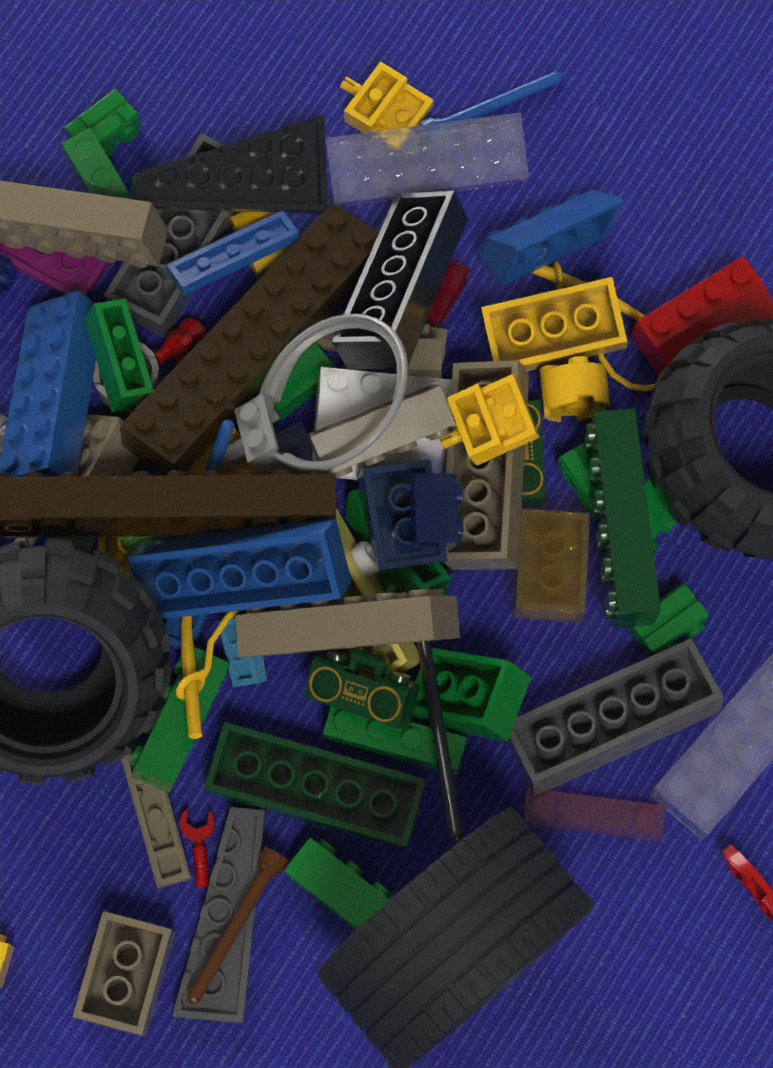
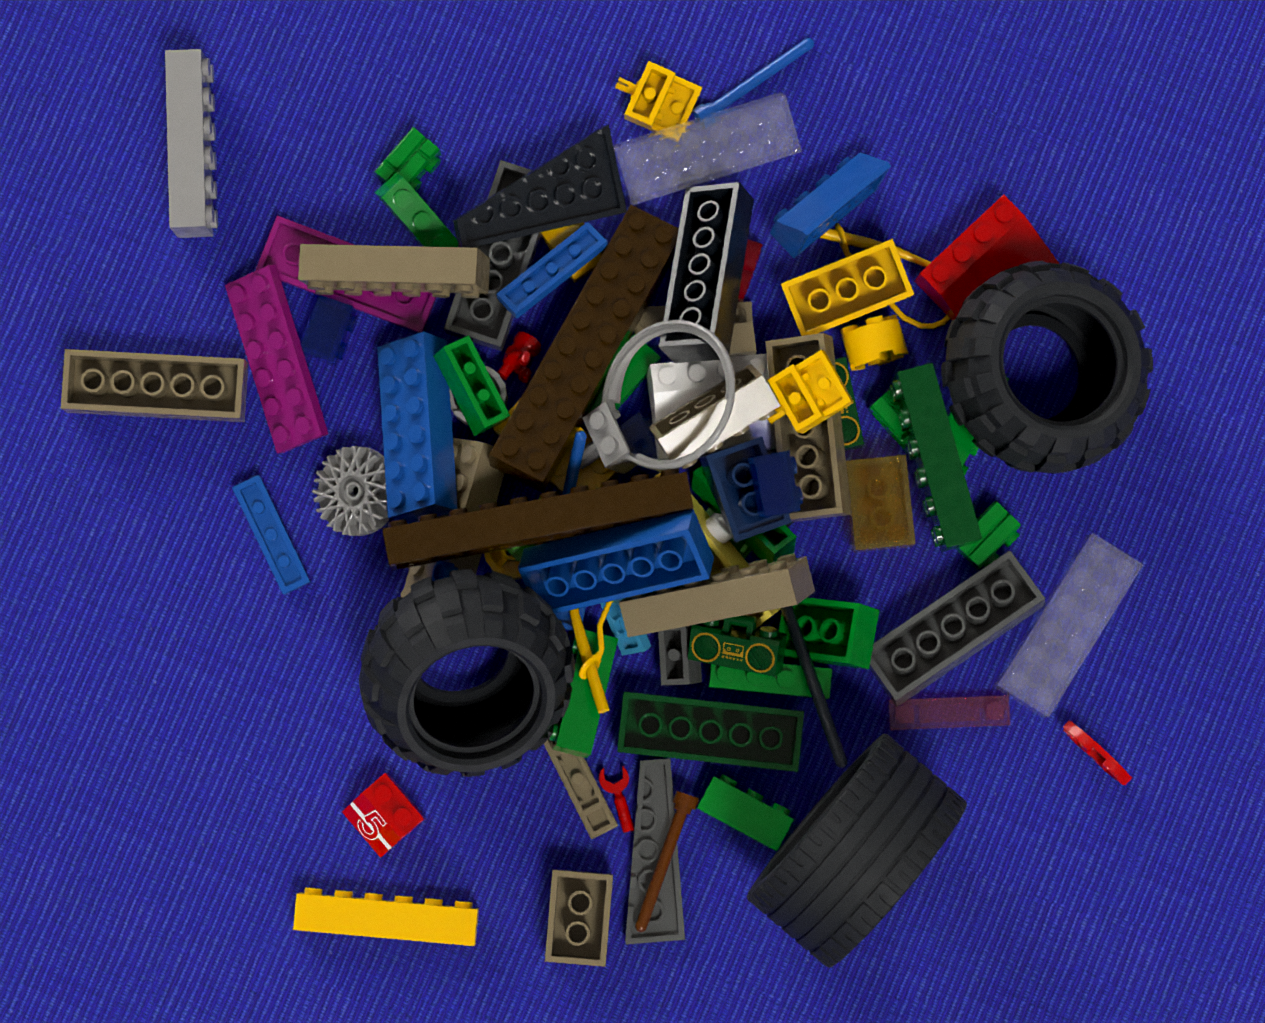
camera: 10 degrees left, 10 degrees up
(288, 705) = (674, 660): none -> dark grey brick

